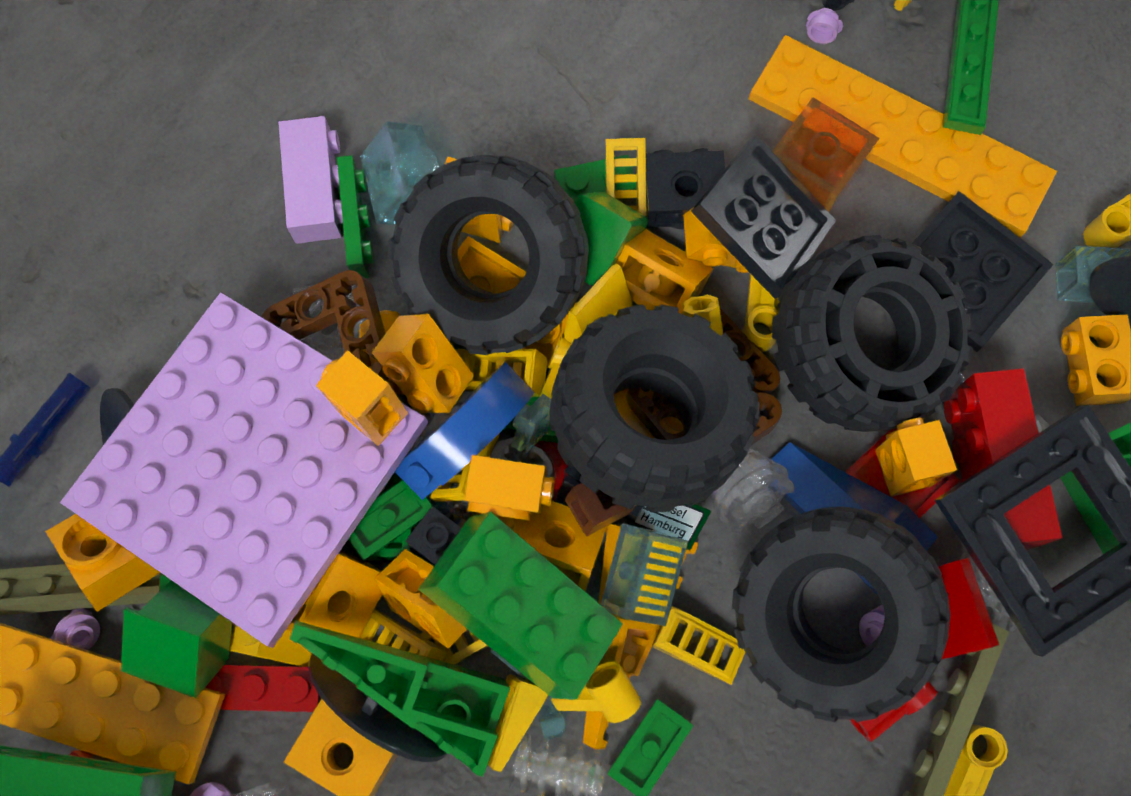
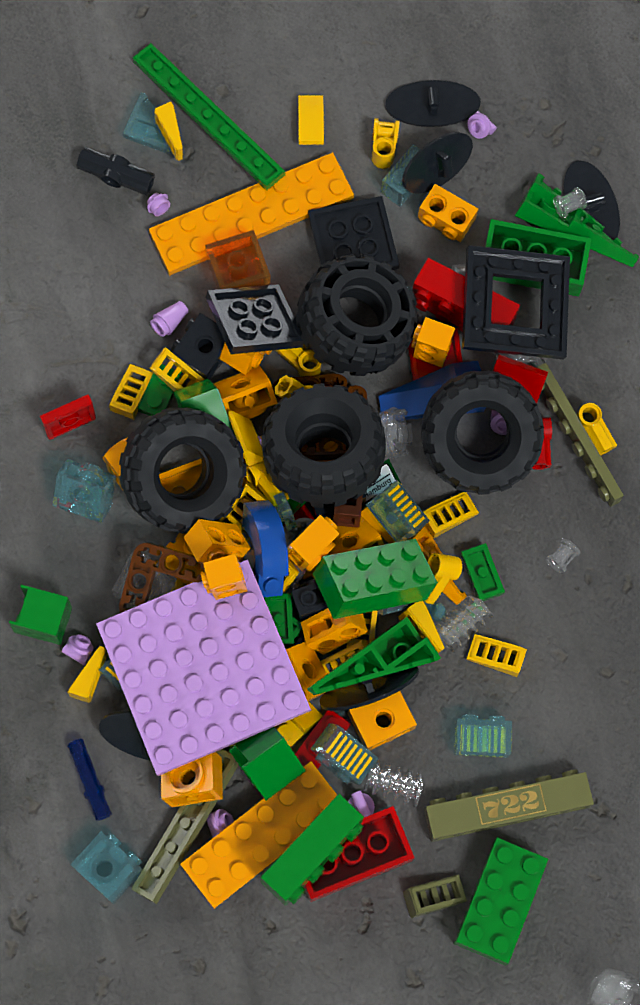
camera: 60 degrees left, 0 degrees up
(157, 341) = (86, 682): none -> yellow slope
(199, 300) = (78, 648): none -> lavender plate
(207, 233) = (42, 615): none -> green piece
(258, 733) = (344, 754): none -> clear light blue brick
(310, 179) = (46, 541): lavender brick -> none
(355, 216) = (87, 532): green plate -> none
(478, 95) = (68, 417): none -> red tile
(559, 138) = (124, 409): none -> yellow slope
(691, 129) = (168, 319): none -> lavender cone
(1074, 119) = (311, 119): none -> yellow slope

